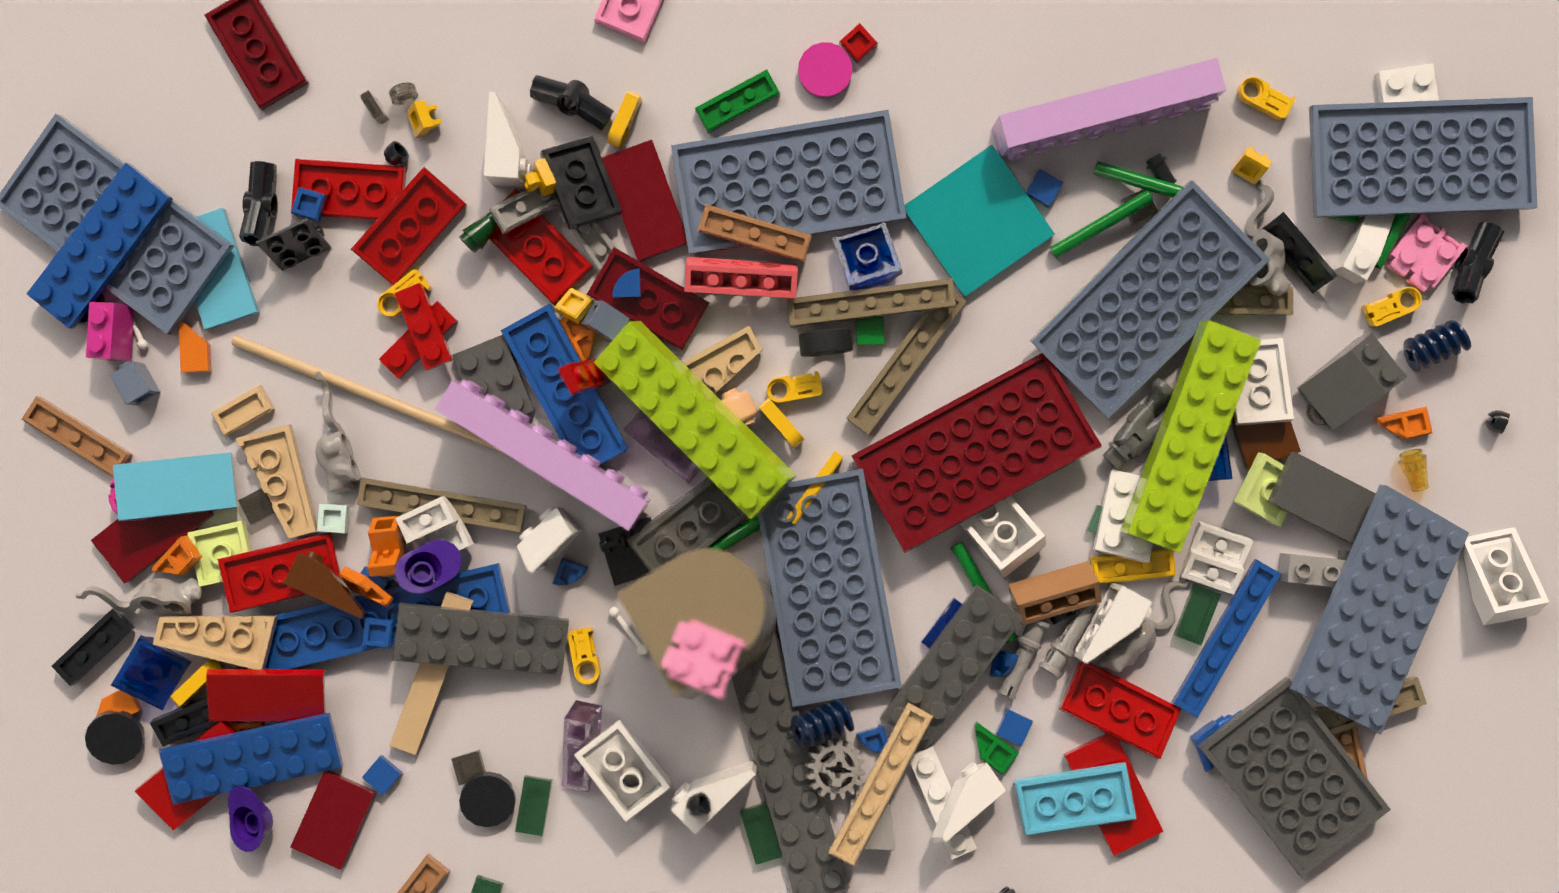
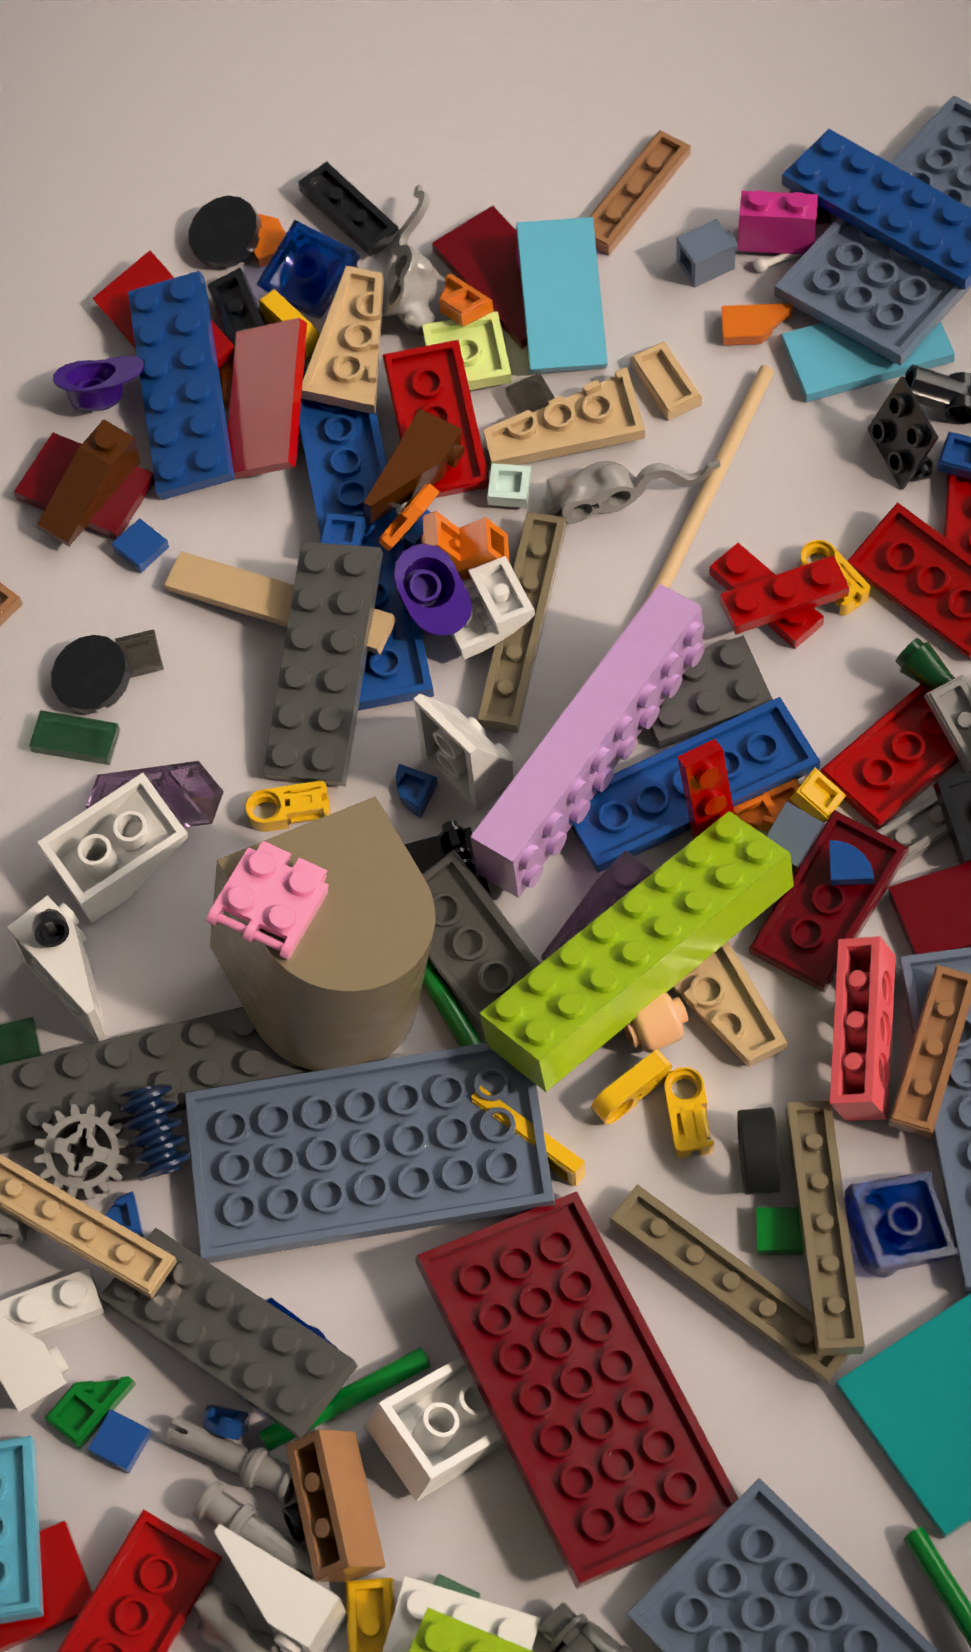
camera: 95 degrees right, 25 degrees down
(337, 816) = (89, 481): none -> reddish brown slope

